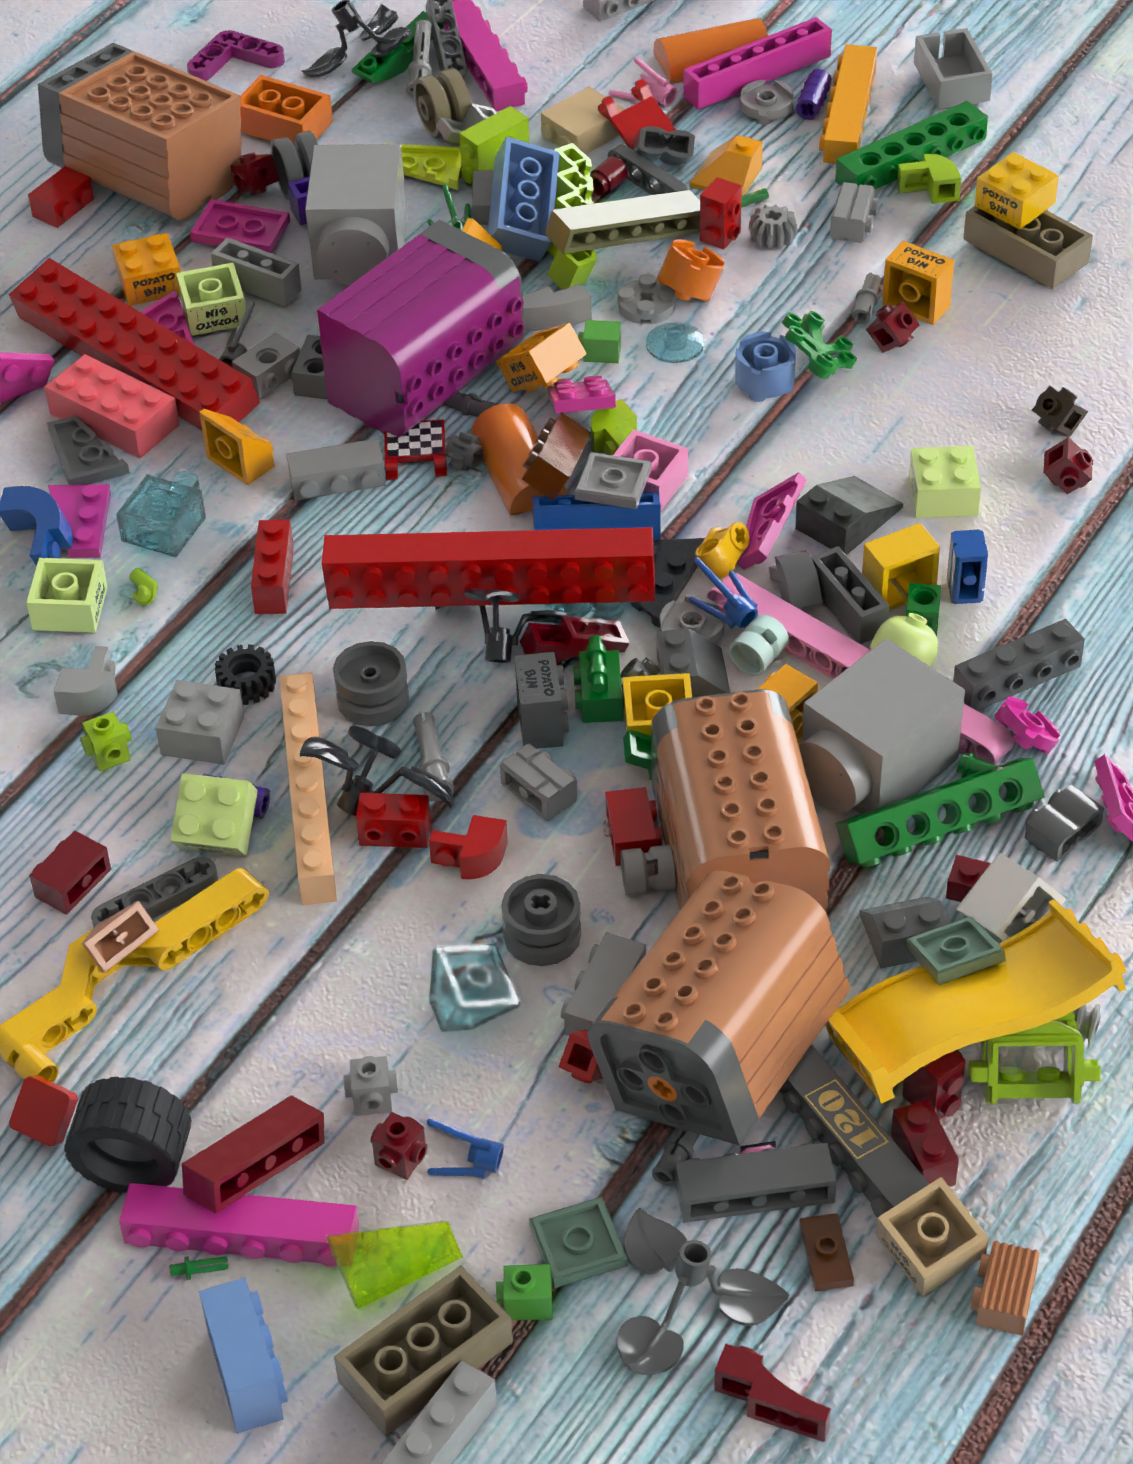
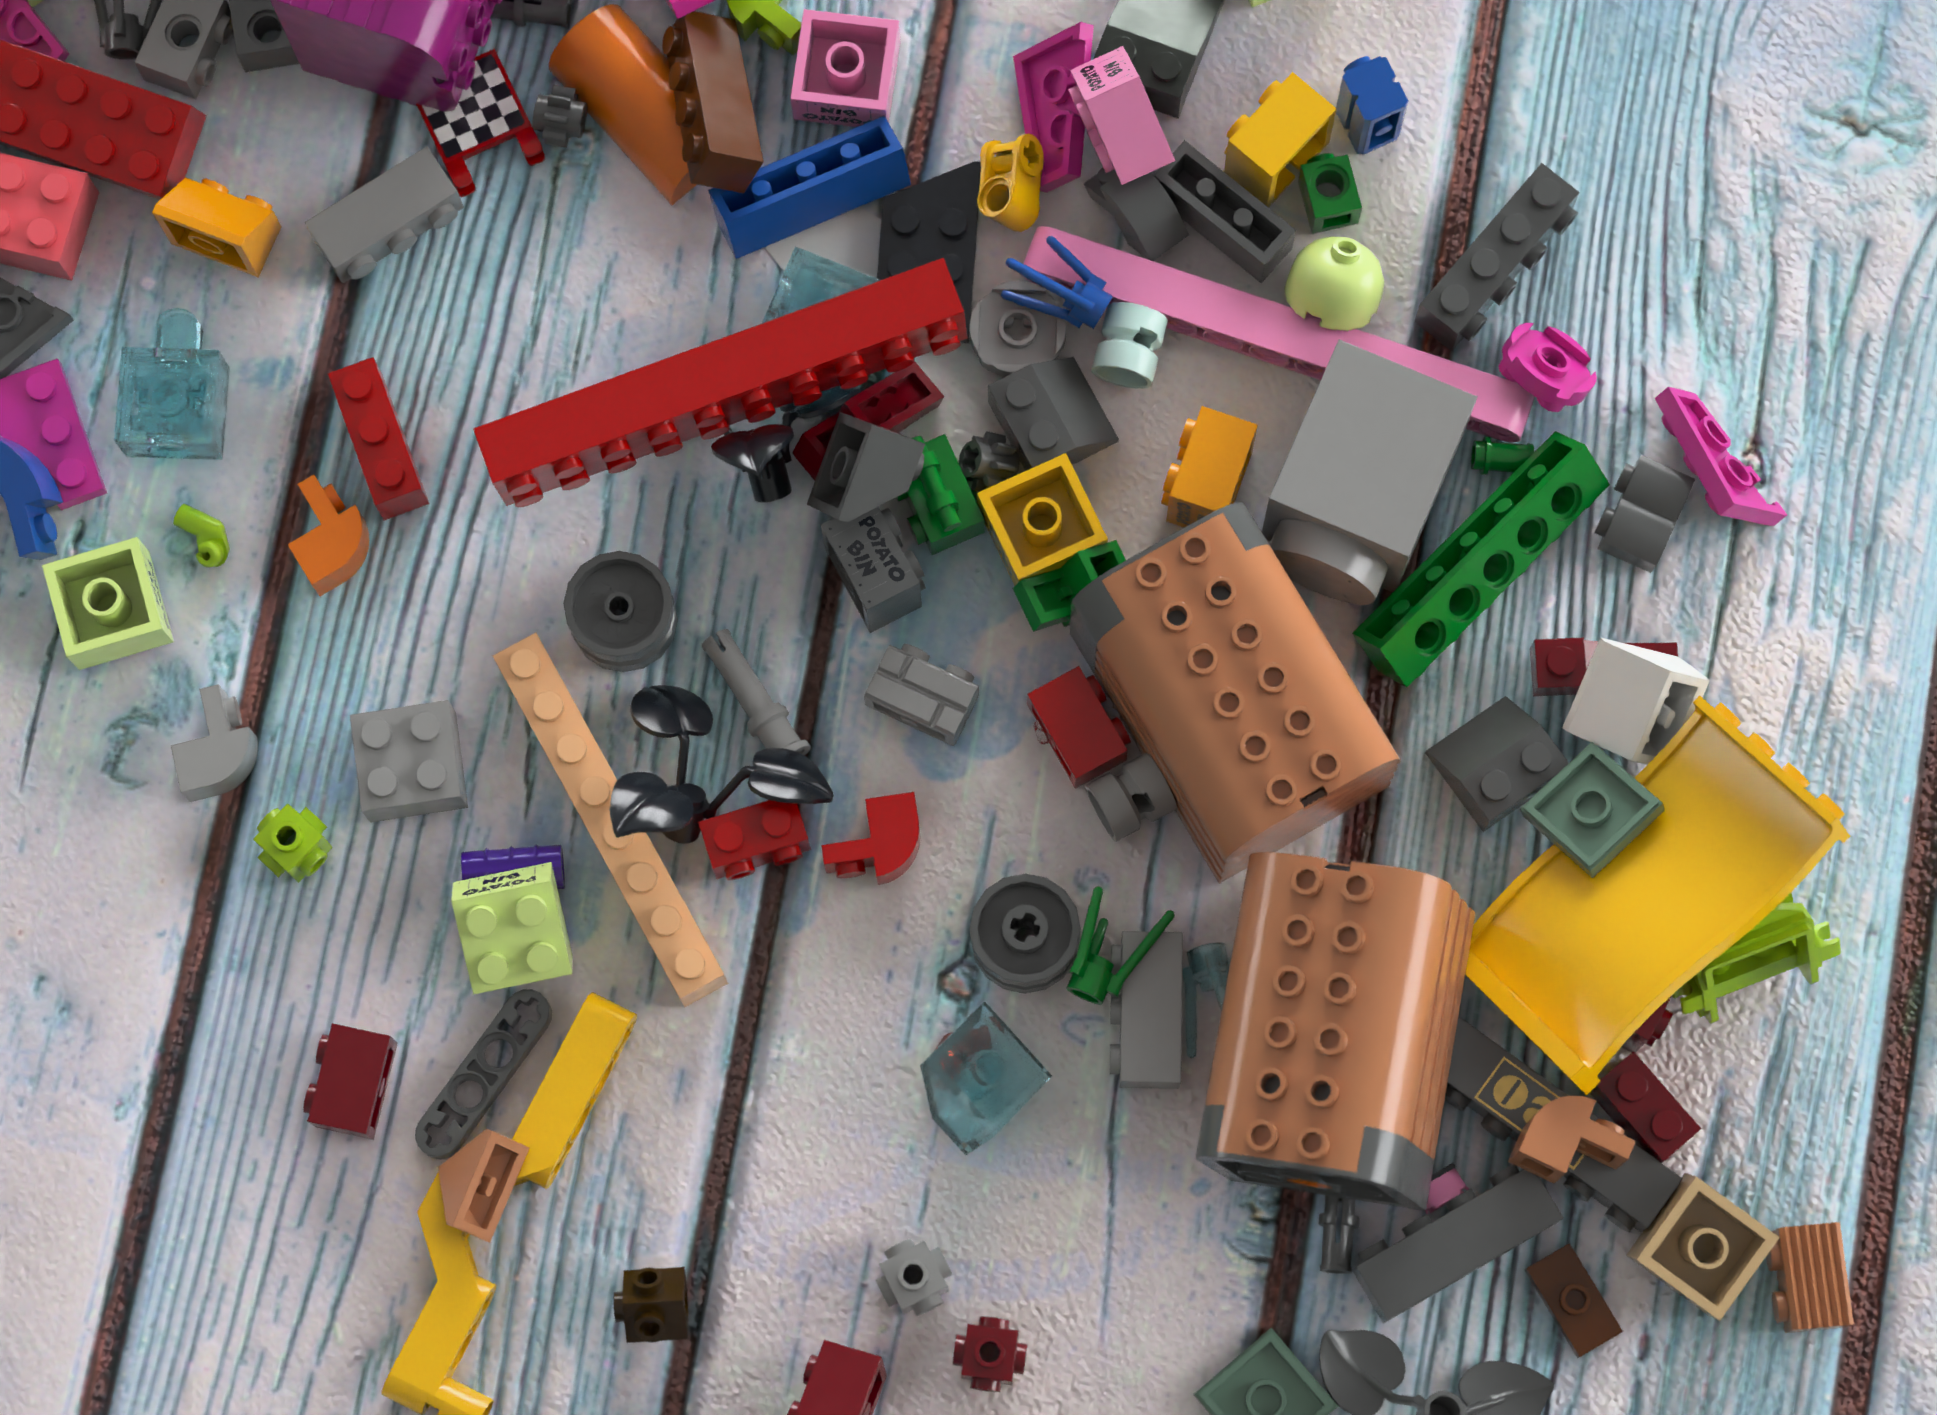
camera: 20 degrees left, 30 degrees up
(191, 1045) = (653, 1304): none -> dark brown brick
(218, 609) = (337, 546): none -> orange brick
(247, 661) = (422, 619): black tyre -> none
(482, 1152) = (1099, 1321): blue plant -> none
(561, 632) = (864, 468): none -> dark grey slope
(577, 949) = (1091, 973): none -> green plant
(579, 1058) = (1175, 1130): red brick -> none
(613, 480) = (819, 129): light grey tile -> none
(802, 517) = (1119, 116): none -> bright pink brick
(855, 1120) = (1560, 1130): none -> nougat brick

